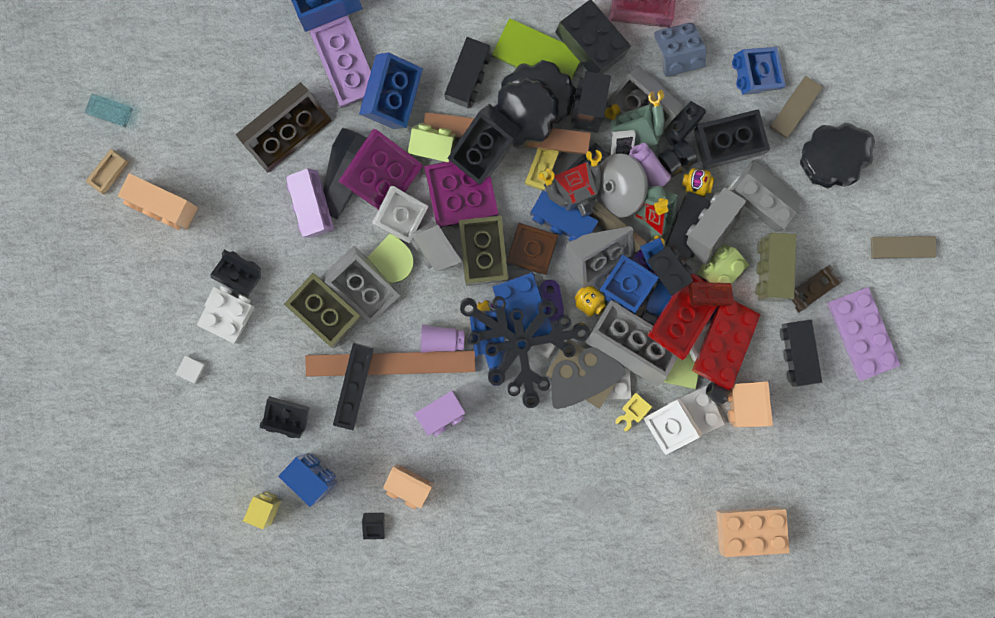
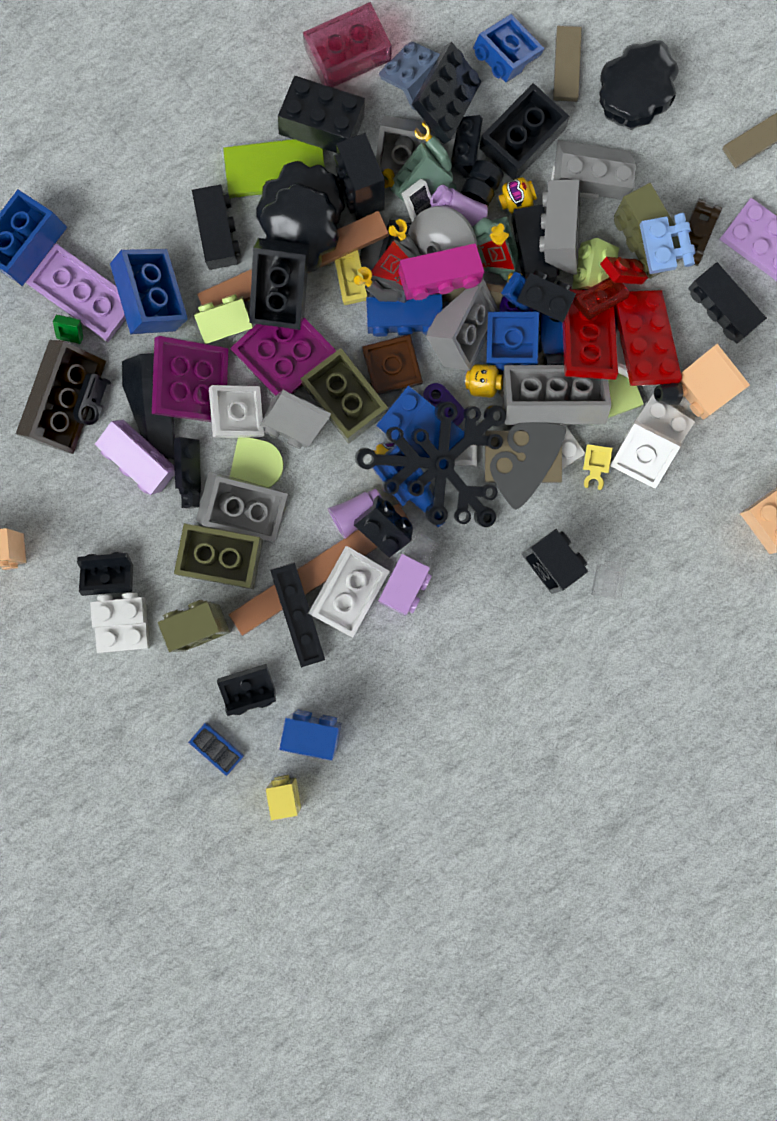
camera: 30 degrees left, 0 degrees up
(190, 369) = (119, 702): white tile -> none
(237, 445) = (216, 749): none -> tile
(274, 349) = (193, 627): none -> olive brick
(304, 139) = (91, 396): none -> black piece
(318, 82) = (68, 329): none -> green plate
(339, 235) = (187, 471): none -> black hinge
(373, 525) = (406, 744): black slope -> none
(399, 393) = (349, 591): none -> white plate
(407, 486) = (417, 681): light nougat slope -> none
(453, 363) = (385, 527): none -> black bracket
(557, 464) = (555, 561): none -> black brick
(604, 207) = (441, 272): none -> dark pink brick
(691, 79) = (447, 93): none -> black plate
(740, 284) = (624, 270): none -> red plate
(773, 283) = (659, 246): none -> light blue plate

